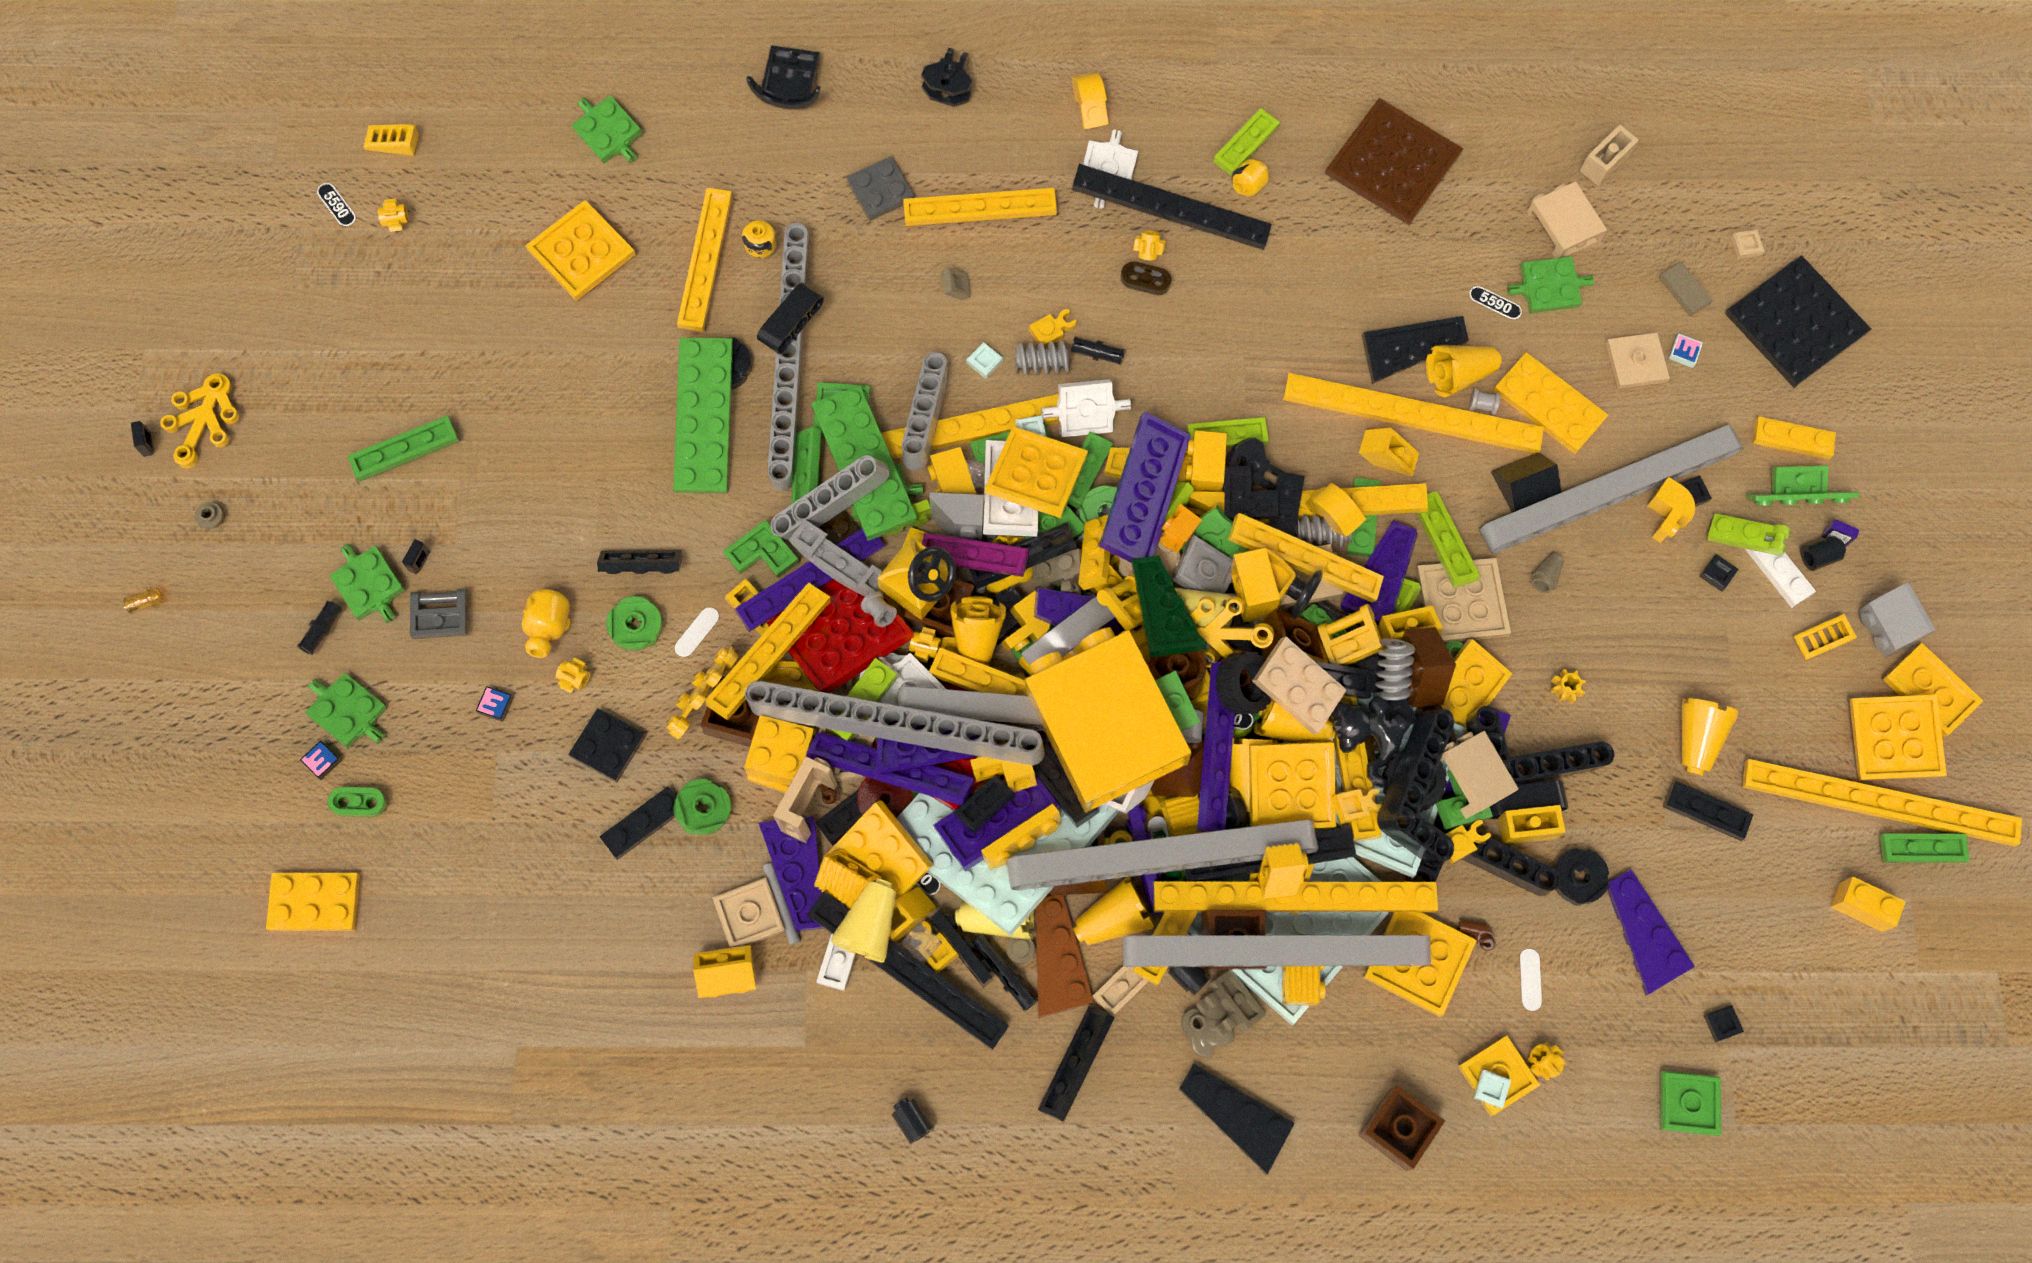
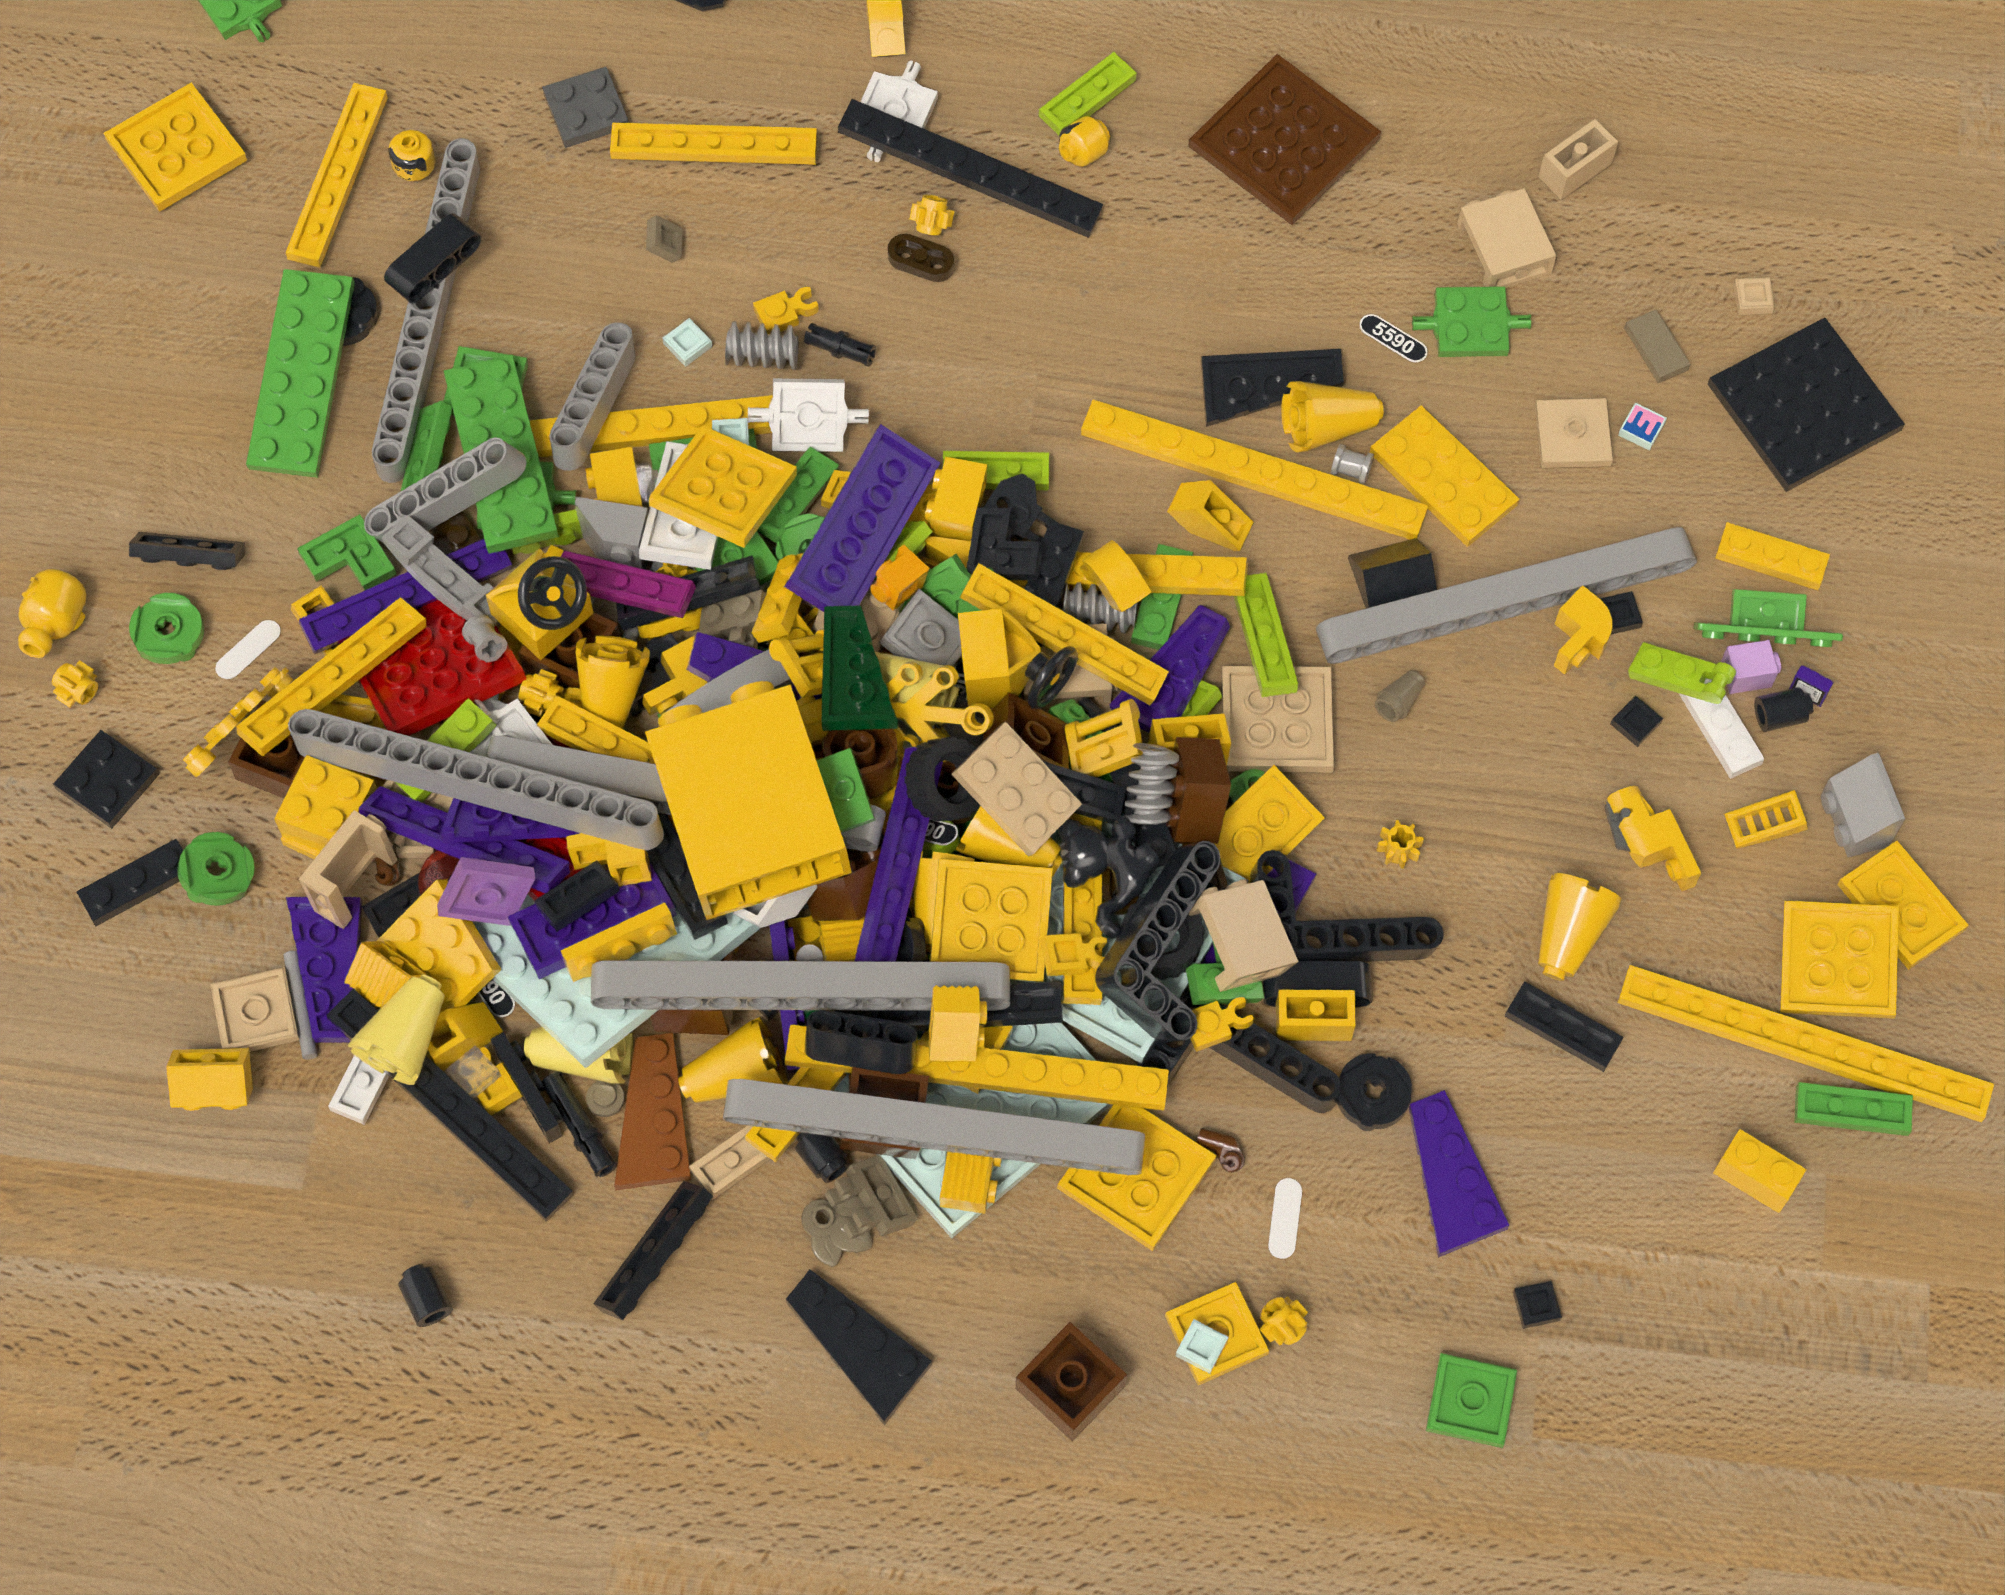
camera: 10 degrees right, 5 degrees down
(916, 809) = (485, 891): none -> medium lavender plate
(1213, 892) = (860, 1042): none -> black beam
(1746, 660) = (1650, 836): none -> yellow plate
(1799, 519) = (1754, 666): none -> lavender brick

